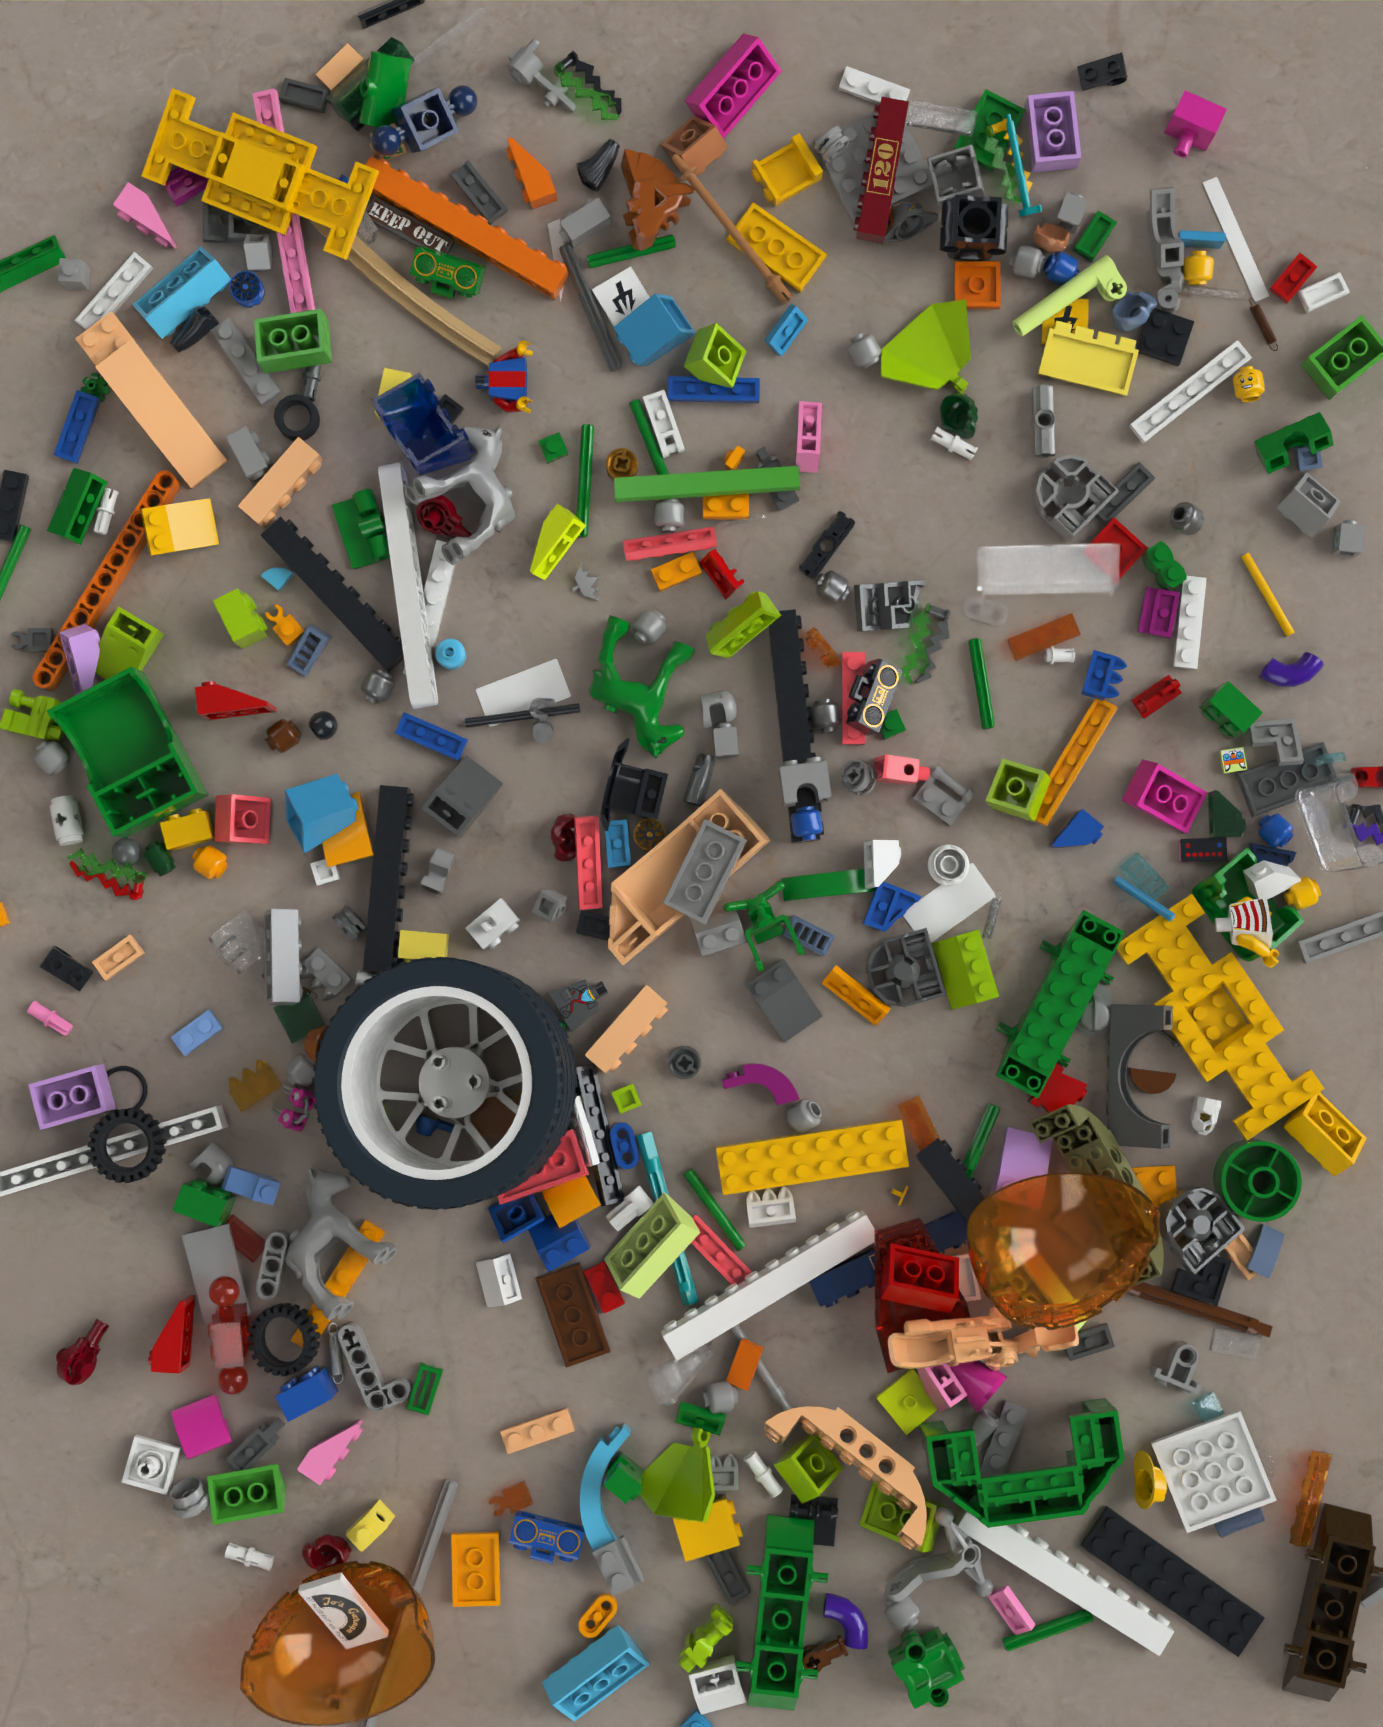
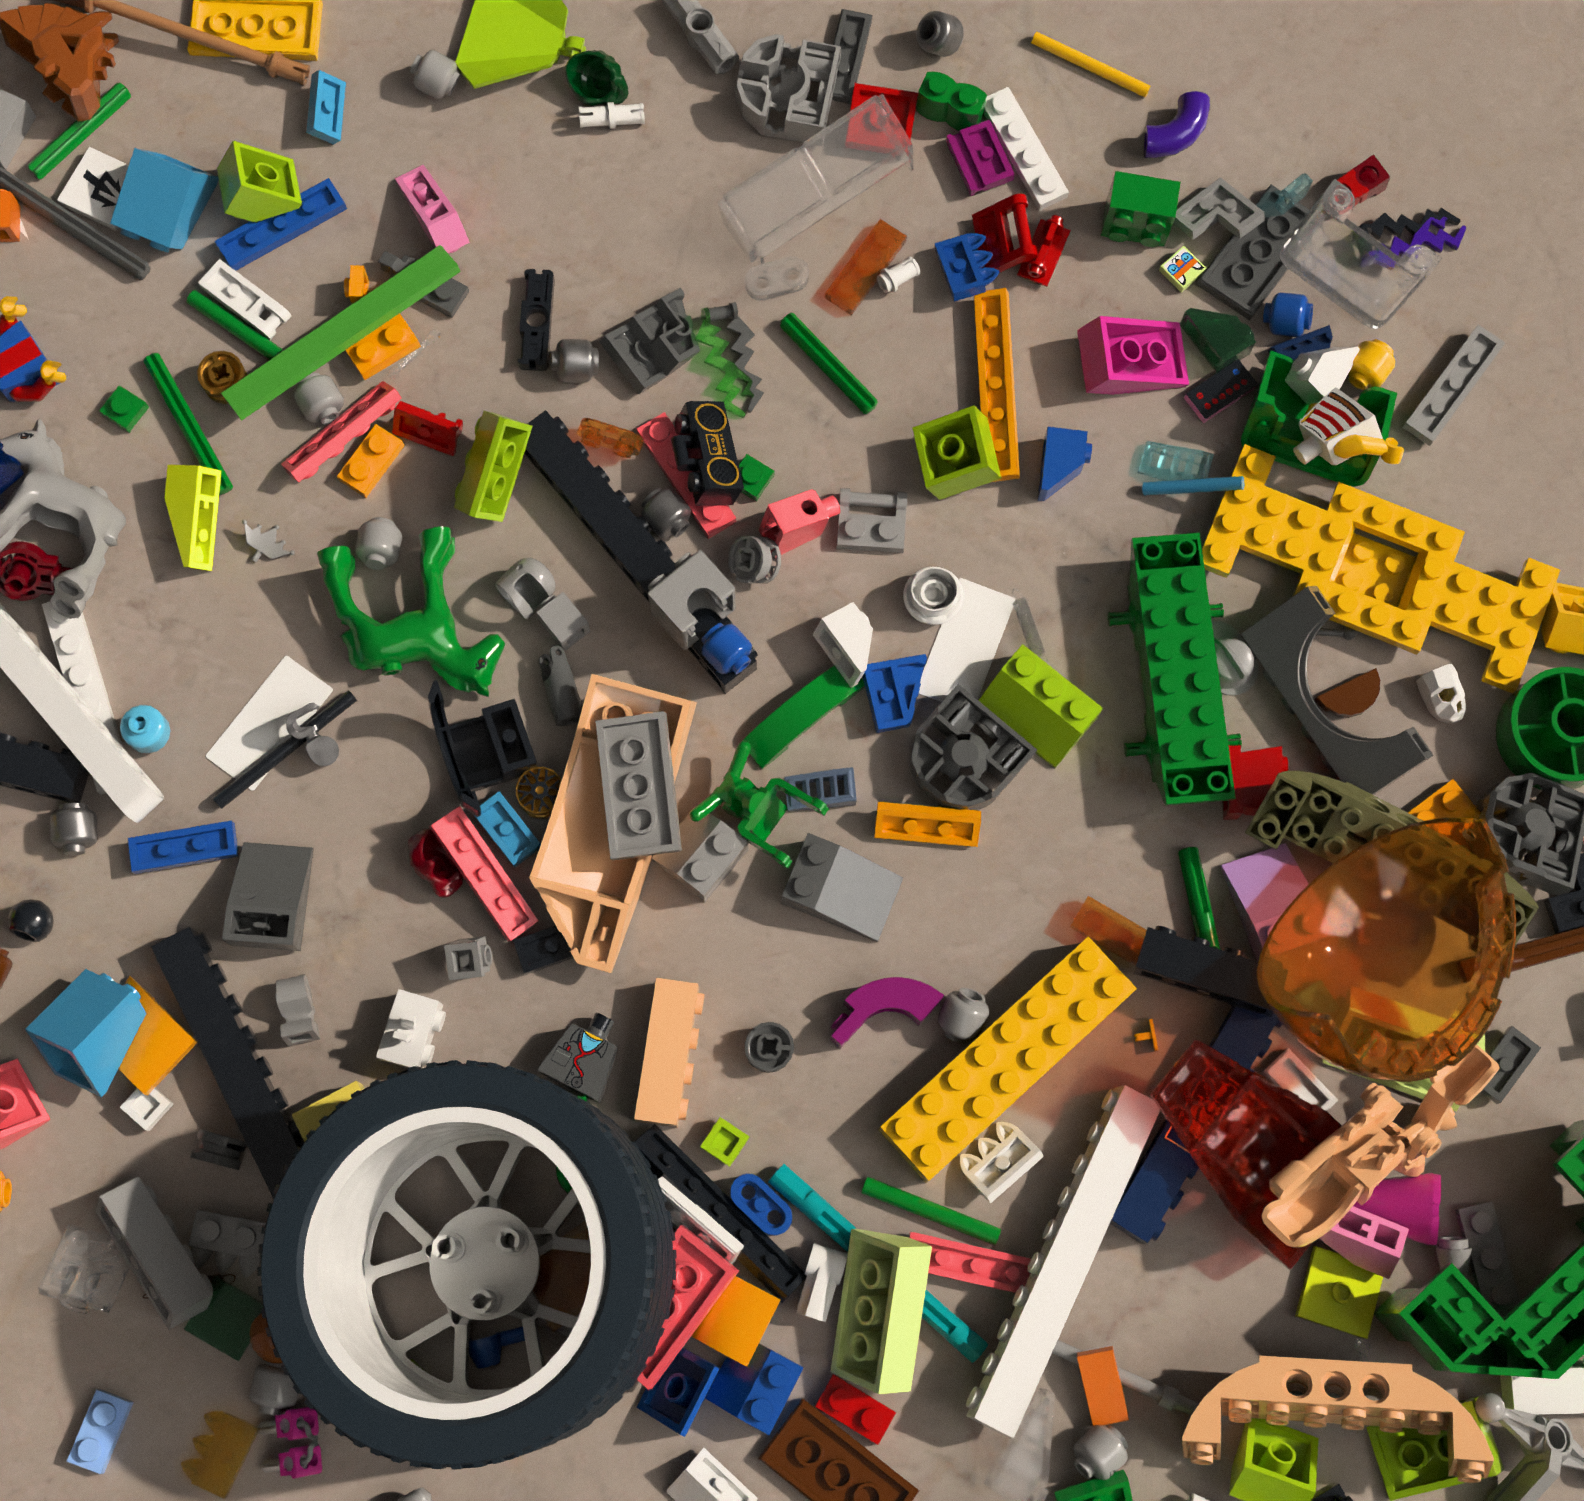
camera: 40 degrees left, 10 degrees down
(920, 1278) = (1250, 1115): red slope -> none
(1136, 662) = (995, 226): none -> red plate

